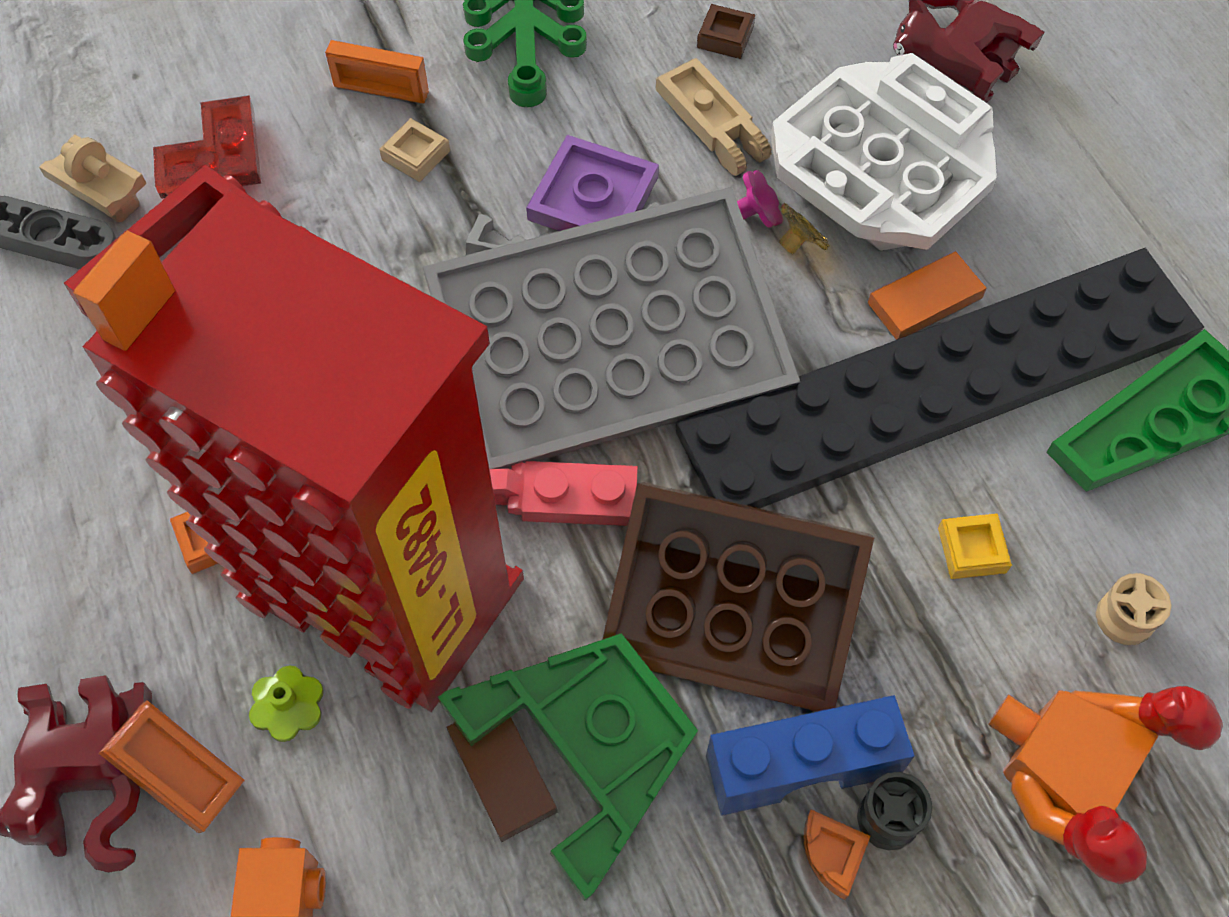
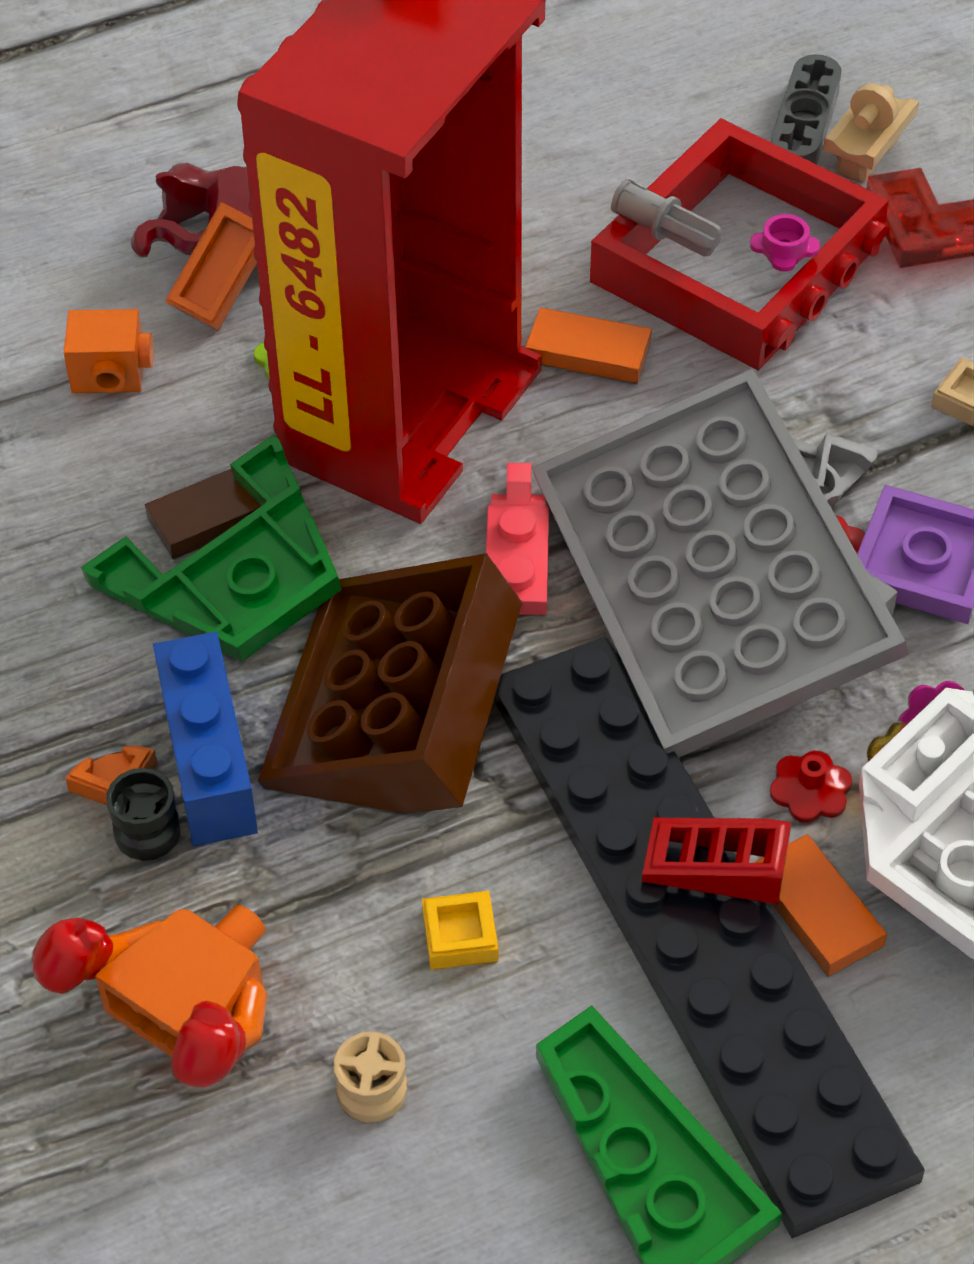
camera: 90 degrees right, 10 degrees down
(811, 295) = (811, 786): none -> red plant
(927, 306) = (741, 835): none -> red slope

